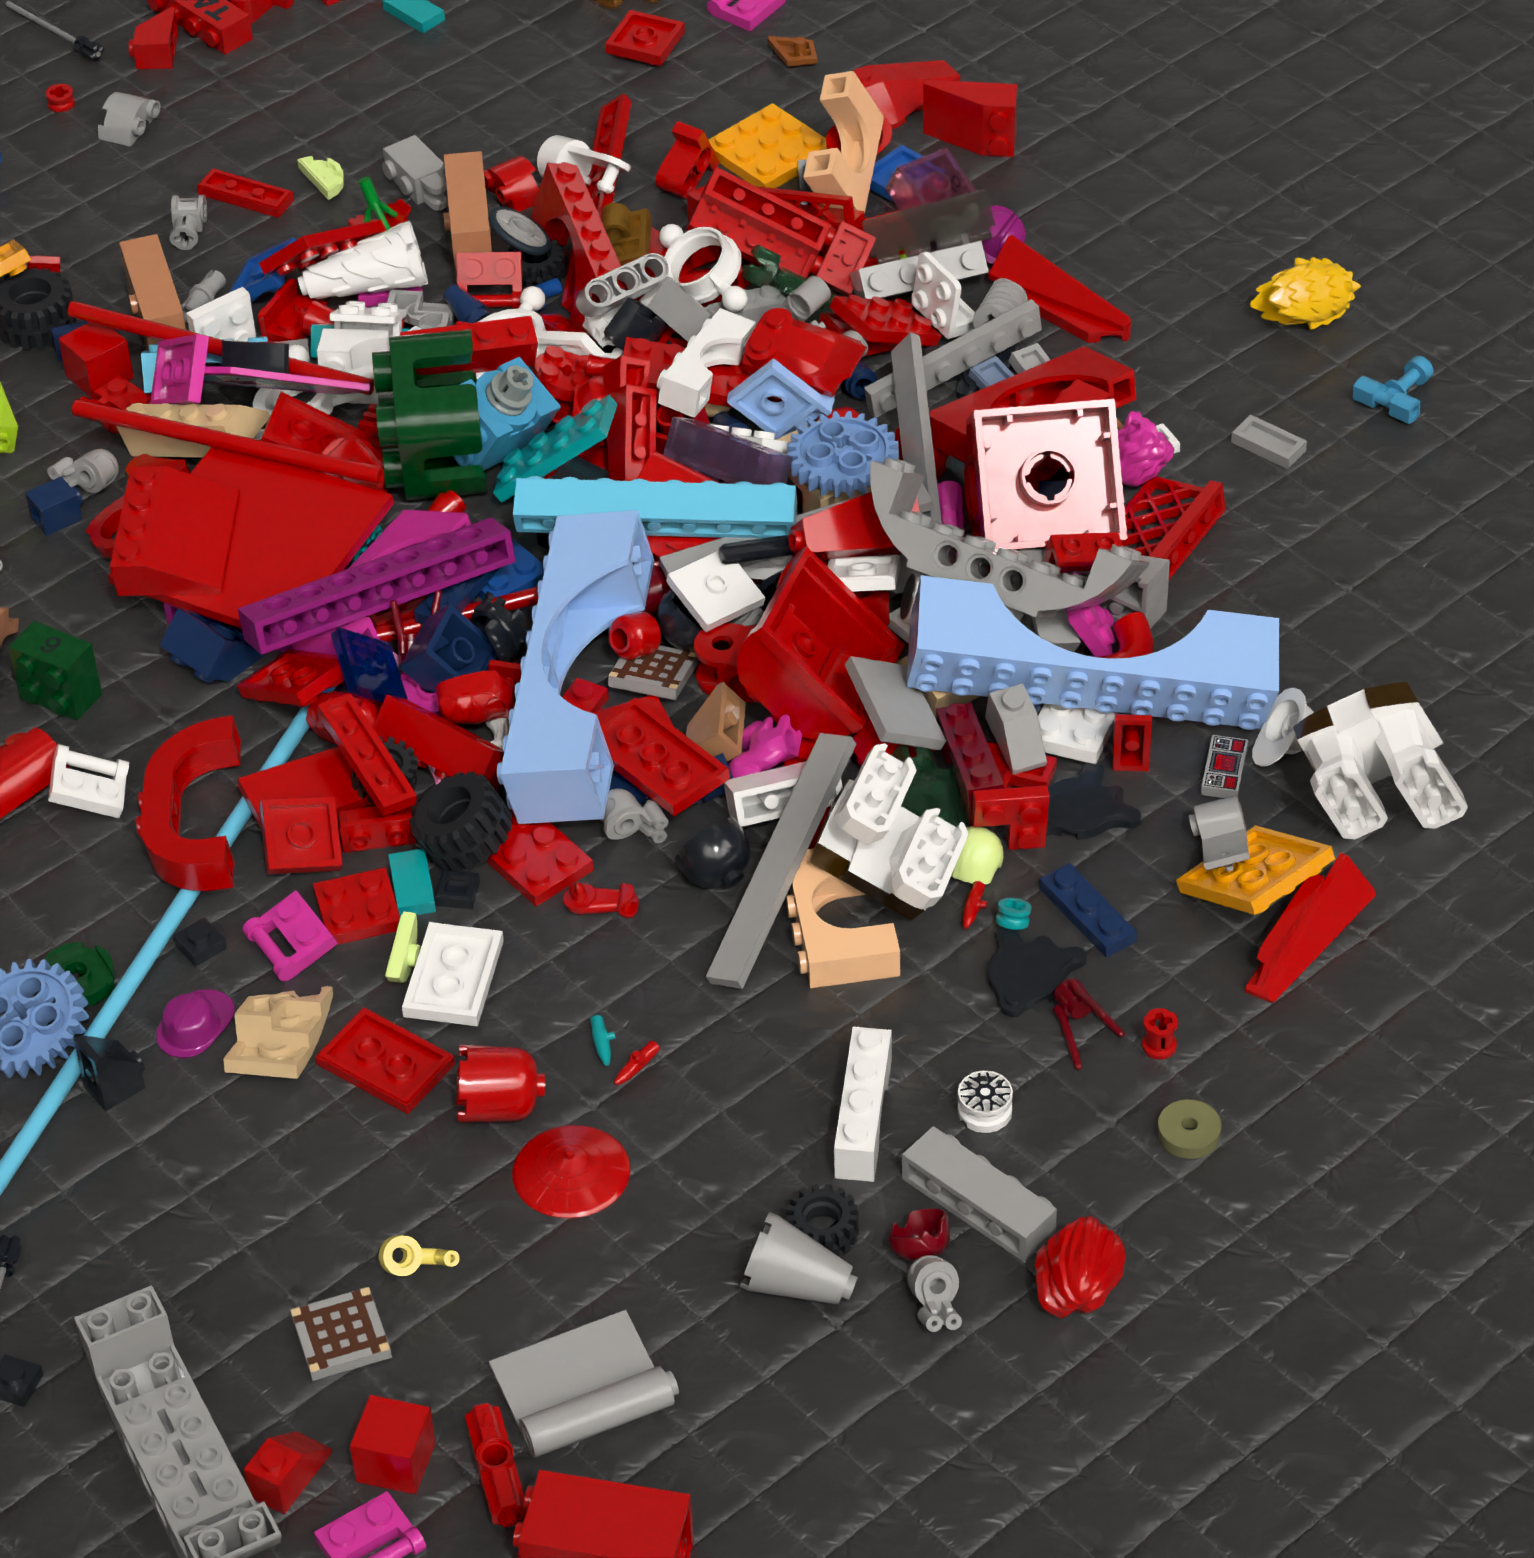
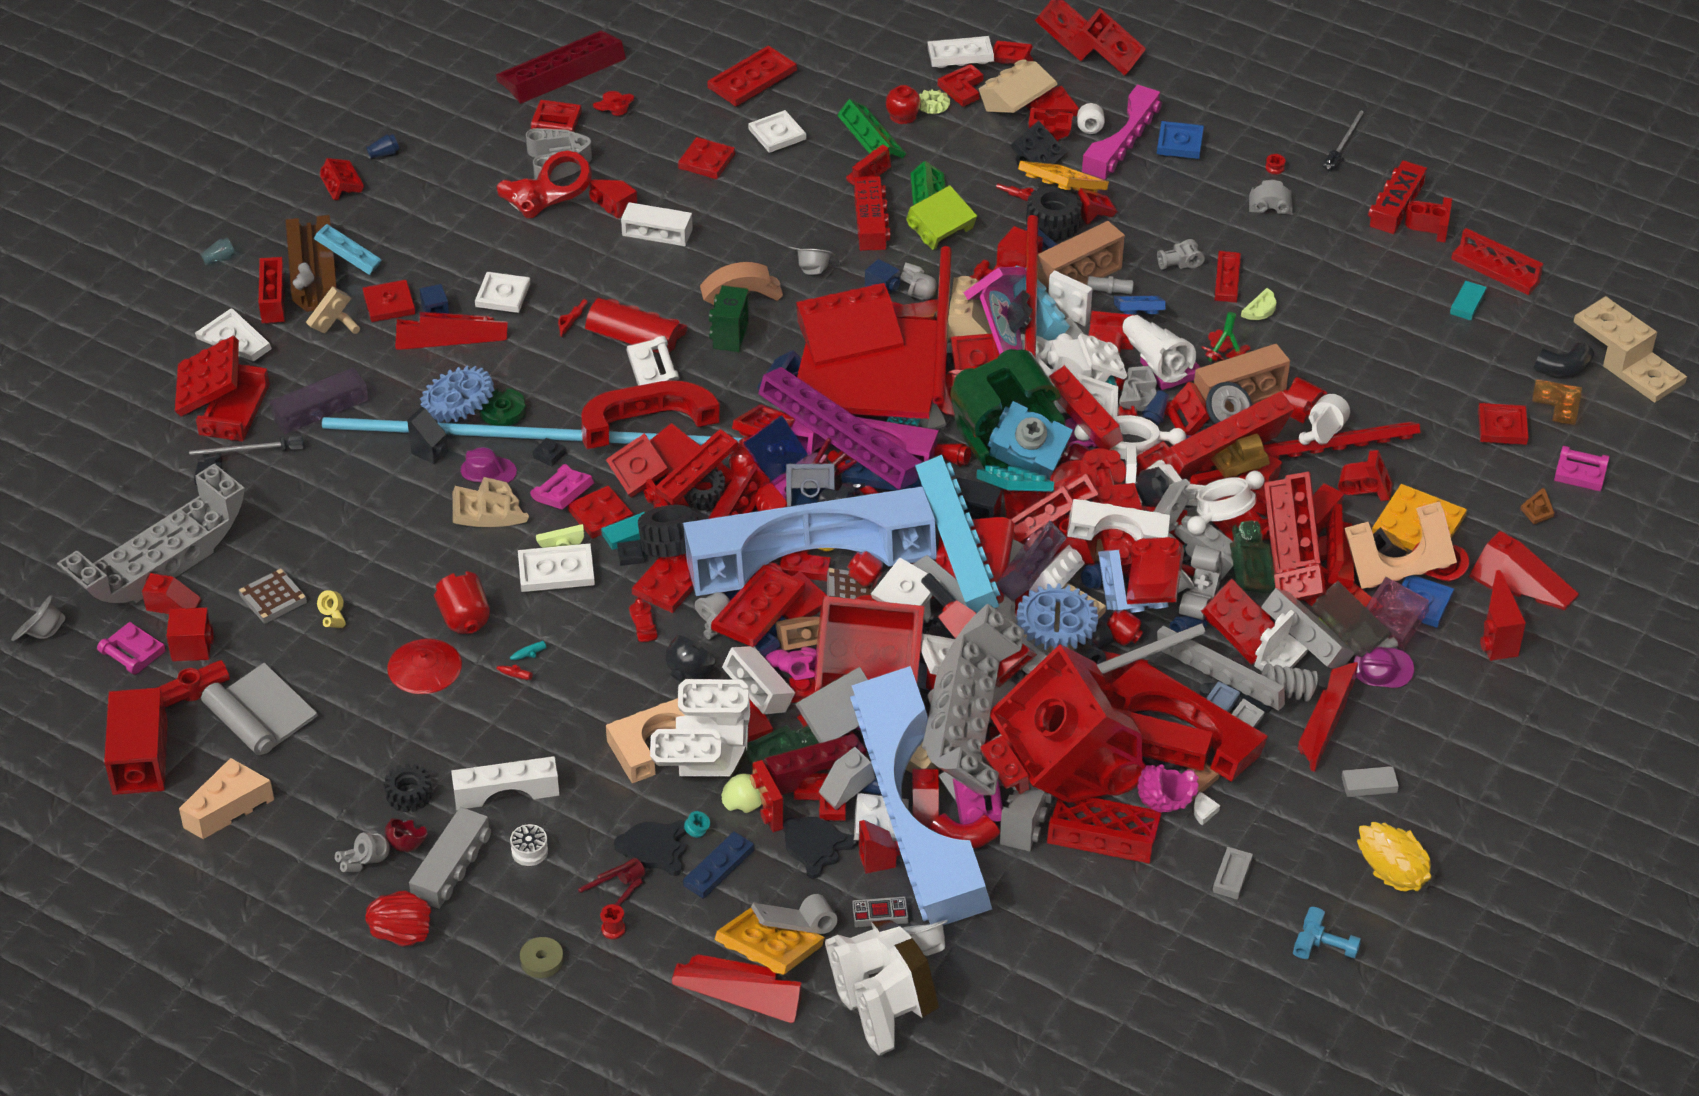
camera: 70 degrees right, 0 degrees up
(155, 41) = (1355, 187): red slope -> none
(318, 246) = (1151, 313): red plate -> none
(385, 1060) = (484, 554): red tile -> none
(416, 172) = (1293, 341): light grey hinge -> none
(632, 275) = (1162, 452): light grey beam -> none
(761, 1450) = (224, 797): none -> light nougat wedge
(780, 861) = (668, 689): light grey tile -> none
(796, 1266) = (363, 776): light grey cone -> none
(973, 904) = (703, 804): red helmet -> none
(1168, 295) = (1370, 781): none -> light grey tile

